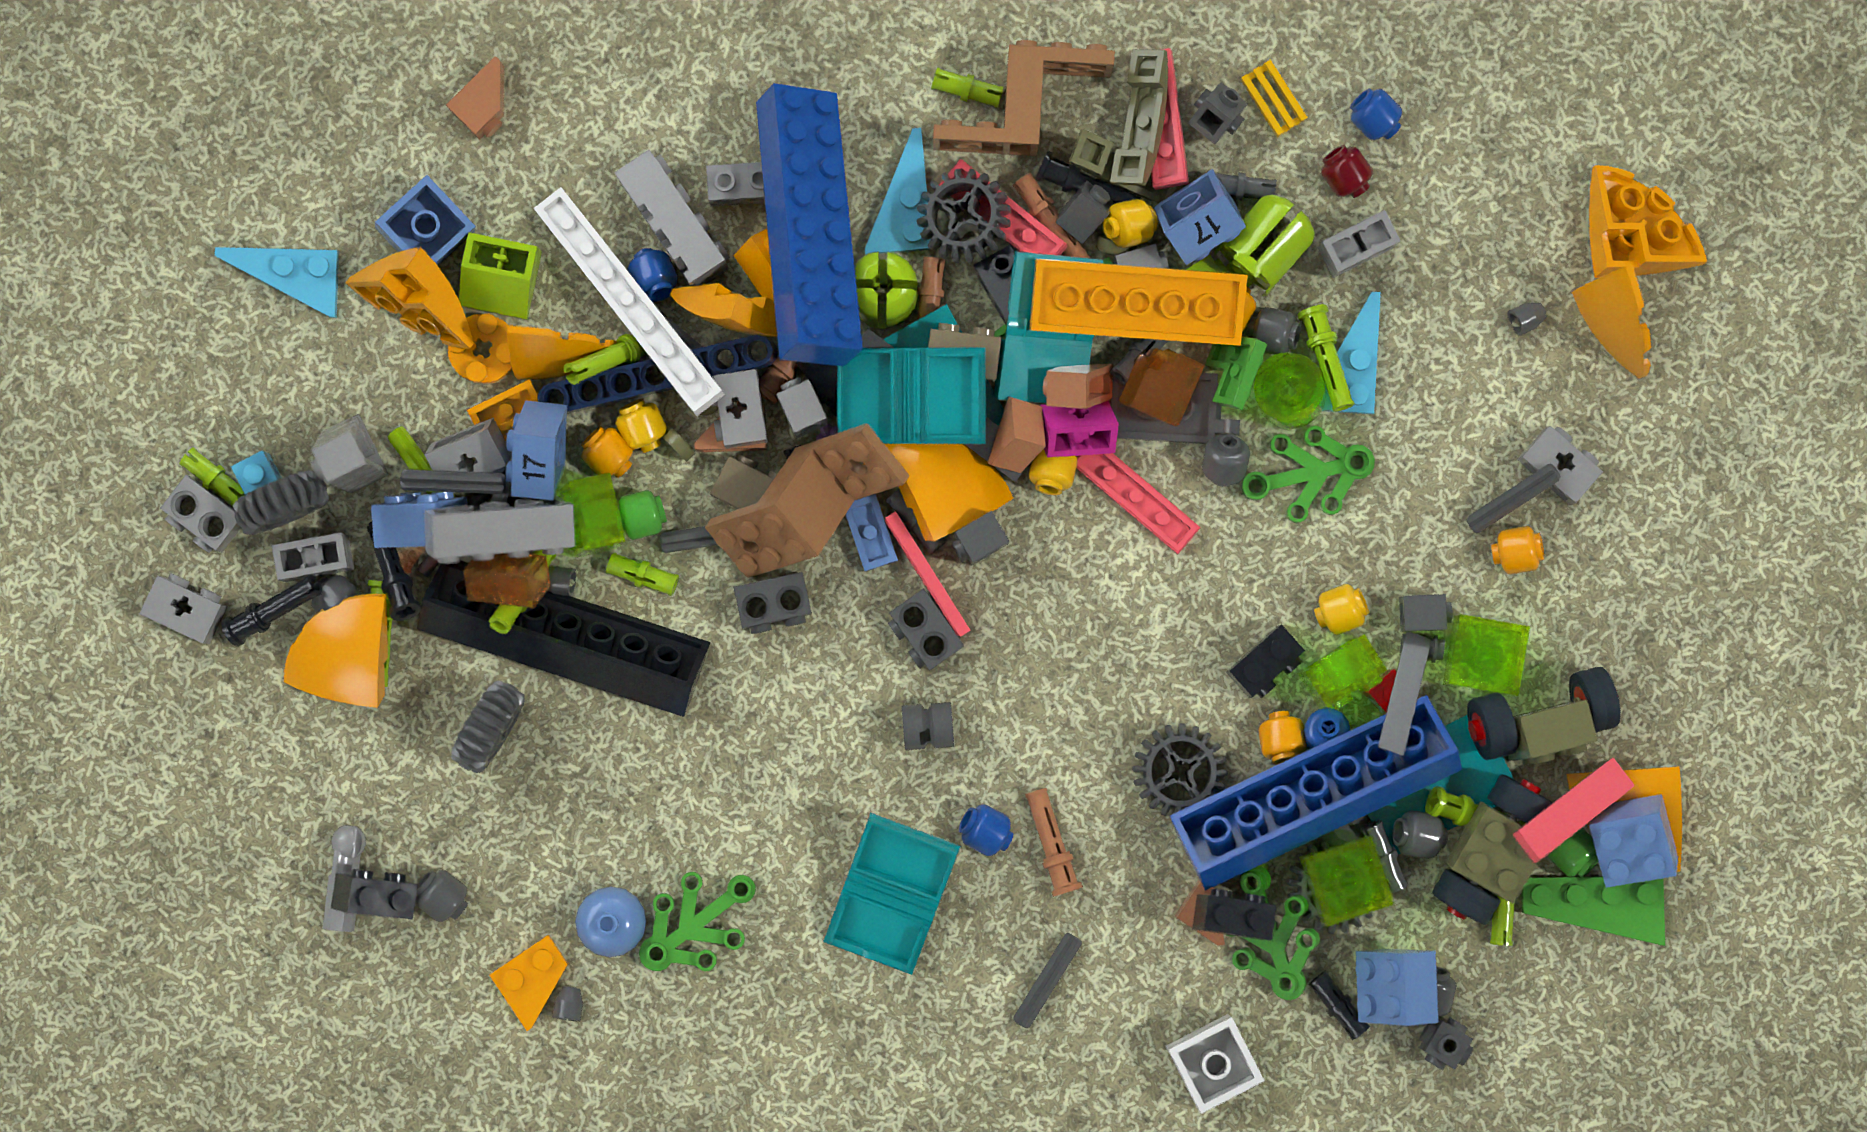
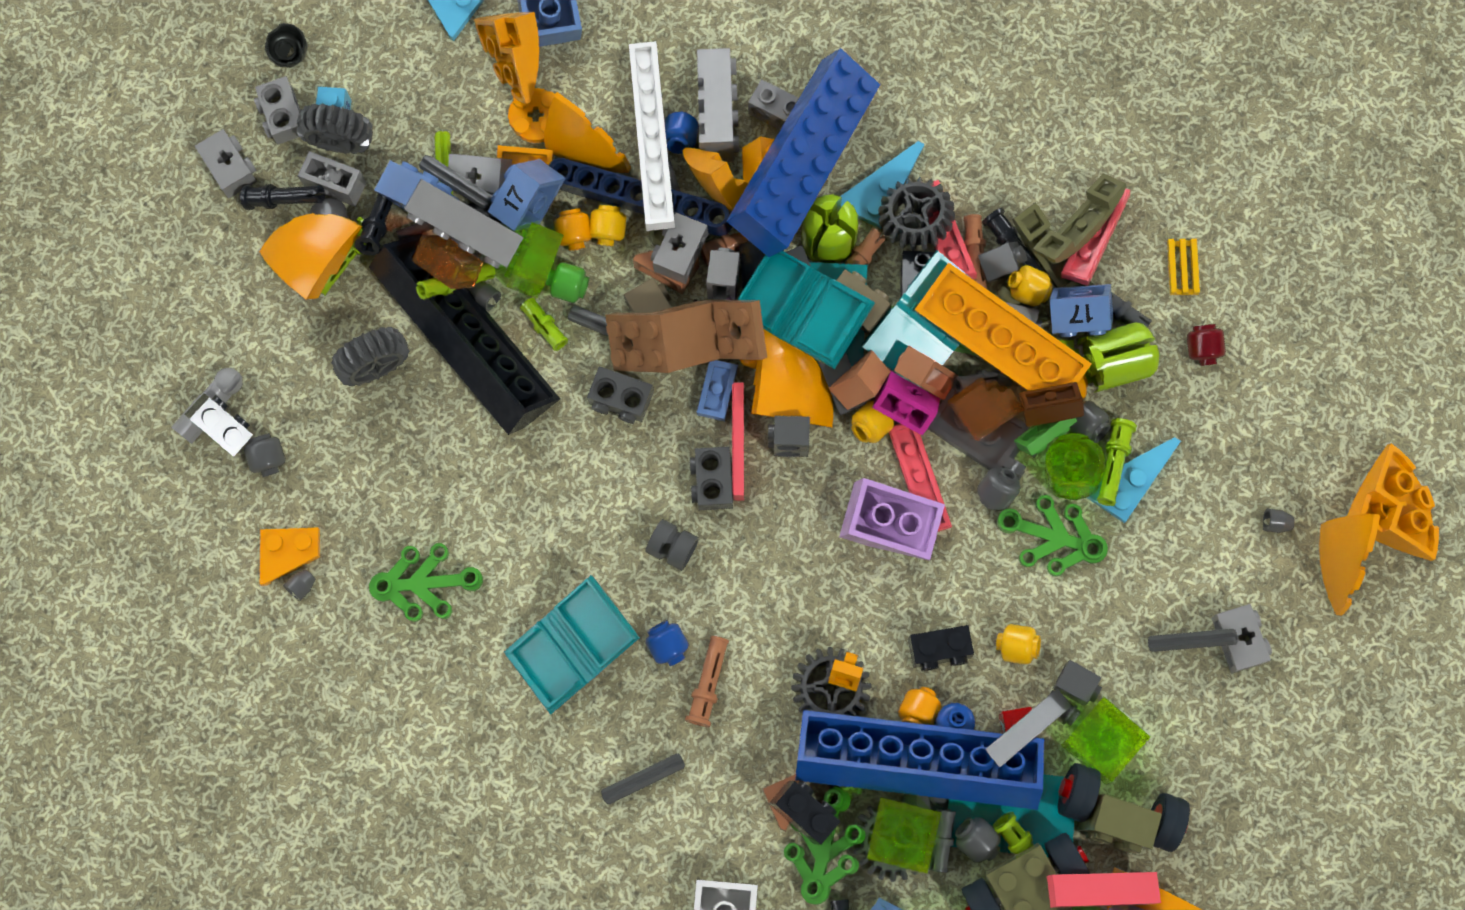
camera: 40 degrees right, 10 degrees down
(149, 439) = (280, 43): none -> pearl dark grey hair
(212, 476) = (304, 91): lime pin -> none
(347, 456) = (396, 122): light grey wedge -> none
(498, 275) = (577, 70): lime slope -> none
(610, 921) = (366, 545): medium blue cylinder -> none
(626, 351) = (628, 167): lime pin -> none
(679, 444) = (625, 253): olive tile -> none
(907, 515) = (757, 422): dark grey pin -> none
(967, 87) = (972, 137): lime pin -> none
(1023, 98) = (1019, 144): medium nougat bracket -> none
(1136, 560) = (891, 519): none -> lavender slope
(1190, 751) = (846, 673): none -> light orange tile
(1218, 112) = (1138, 250): dark grey brick -> none
(1231, 343) = (1052, 404): none -> reddish brown slope
(1342, 672) = (992, 687): clear neon green brick -> none
(1358, 244) = (1185, 396): light grey brick -> none
(1376, 114) = (1250, 317): blue head -> none
(1518, 550) = (1174, 680): light orange head -> none

